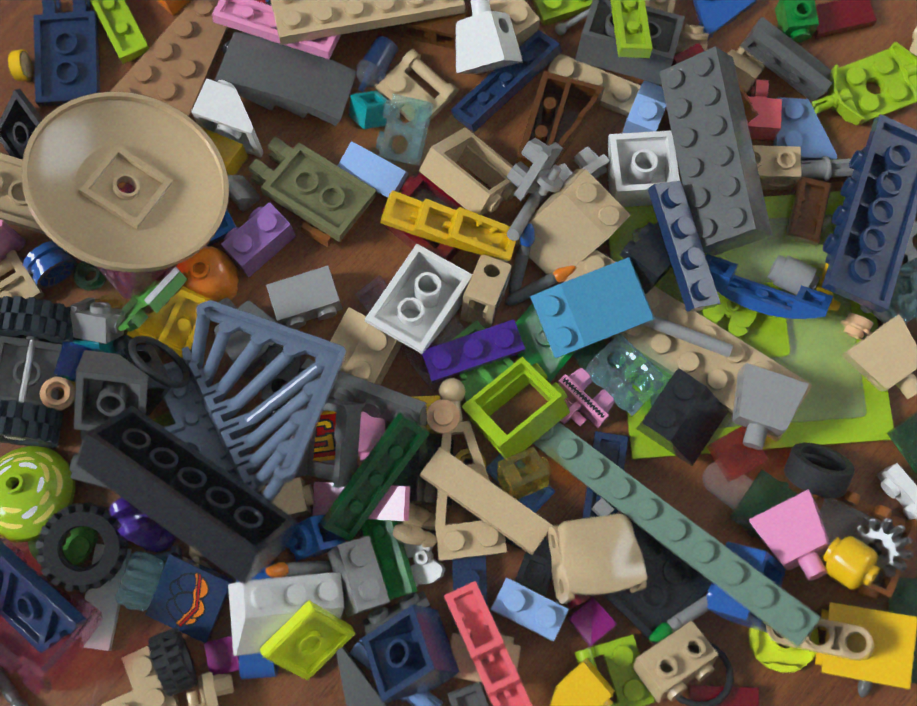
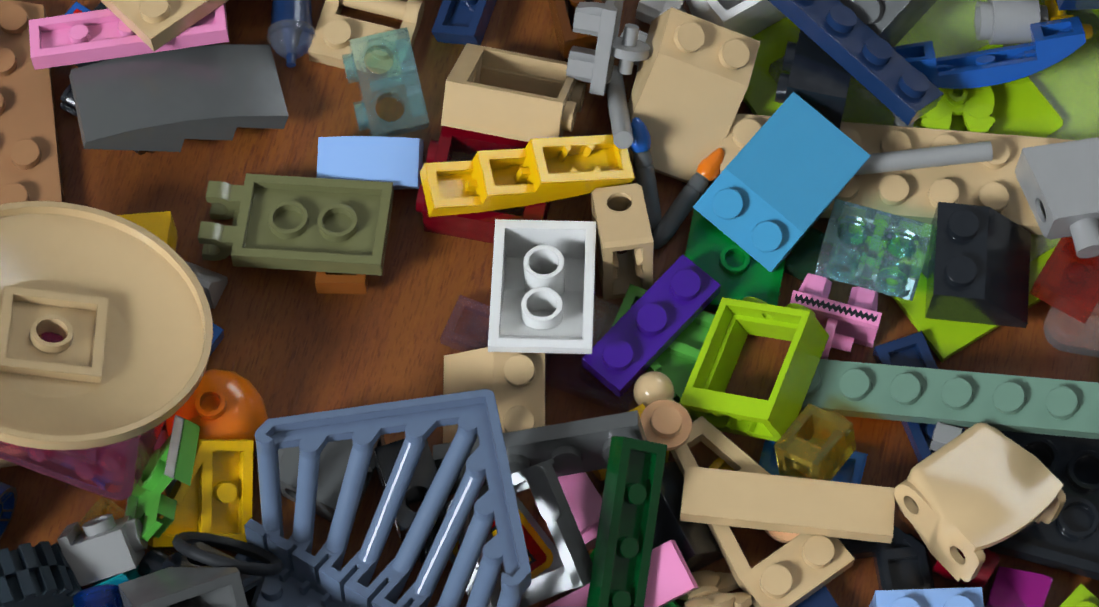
camera: 30 degrees left, 10 degrees down
(80, 276) = (43, 487): clear green plate -> none
(223, 112) = (132, 179): white slope -> none
(258, 239) = (264, 327): medium lavender brick -> none
(304, 298) = (376, 368): light grey brick -> none
(368, 109) = (317, 86): teal slope -> none

